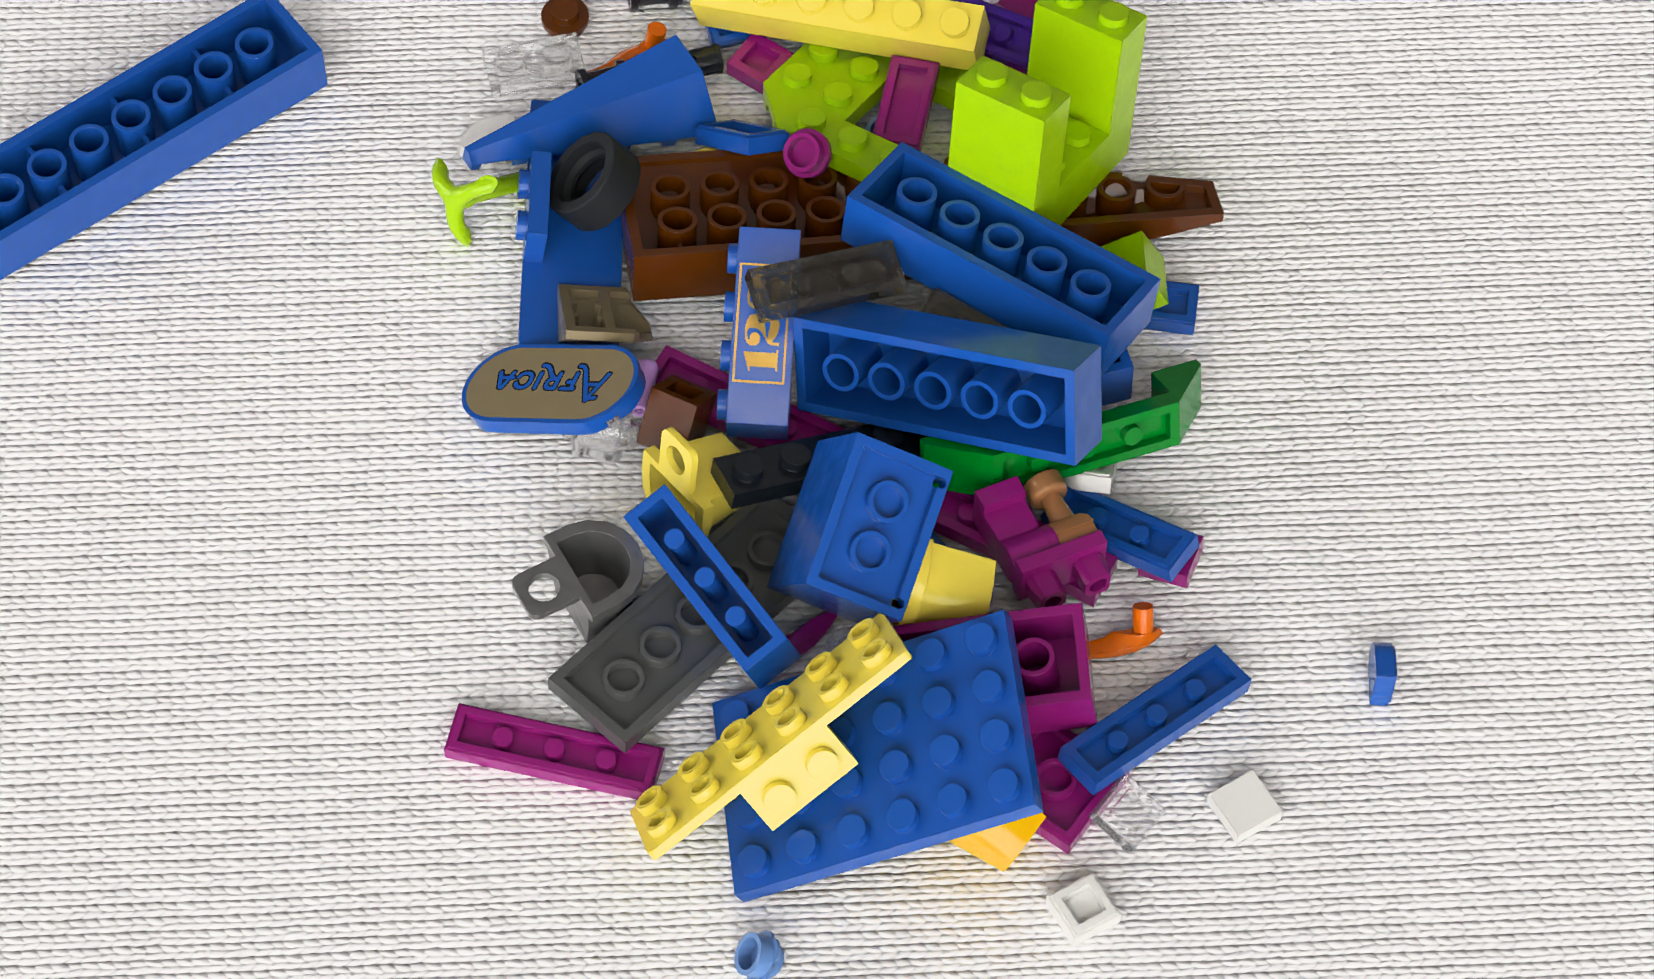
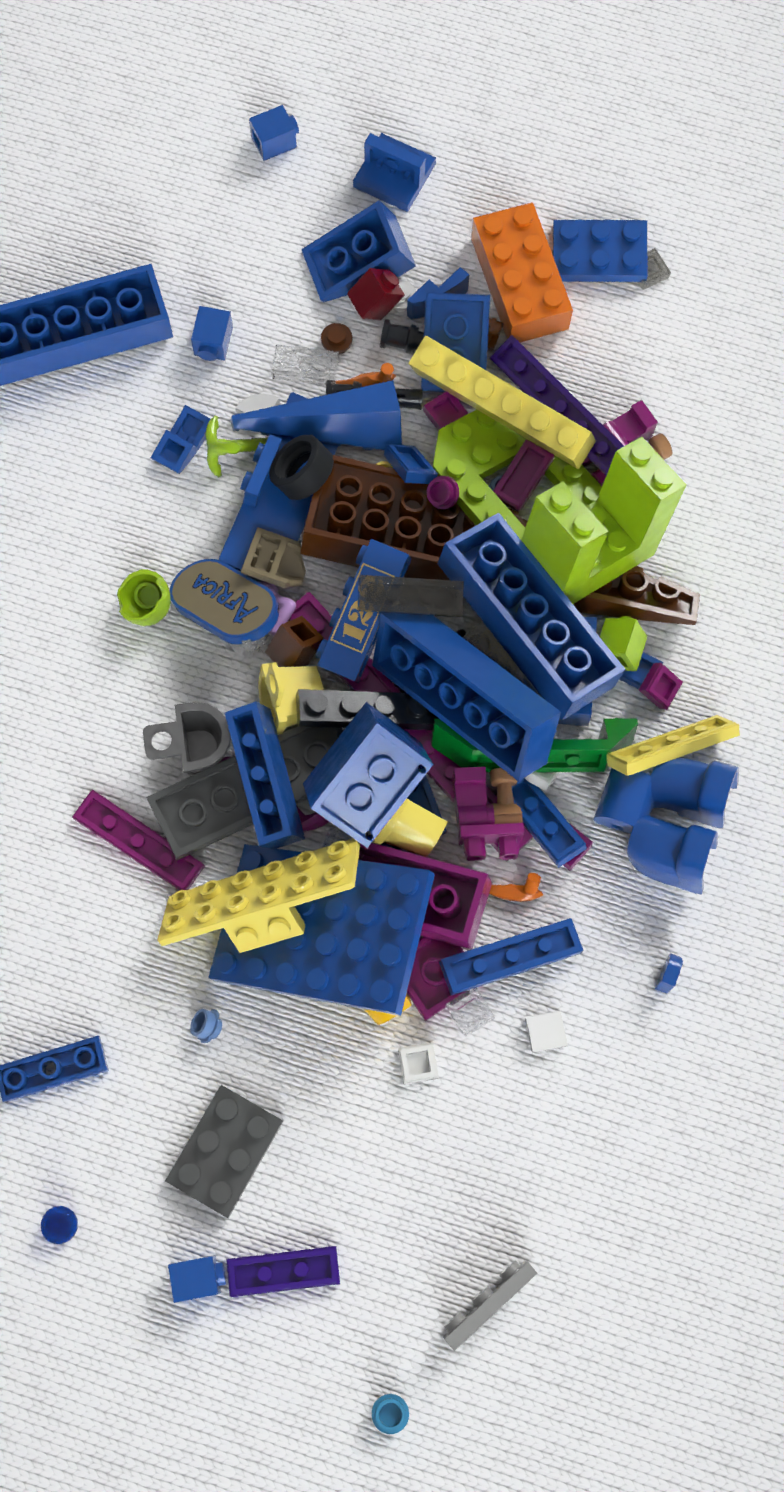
camera: 20 degrees right, 15 degrees up
(384, 60) = (212, 333): none -> blue brick
(398, 210) = (183, 441): none -> blue slope
(433, 425) = (144, 598): none -> lime hair
(1209, 314) = (660, 686): none -> magenta tile
(1259, 374) = (672, 745): none -> light yellow tile
(1300, 514) = (661, 848): none -> blue piece

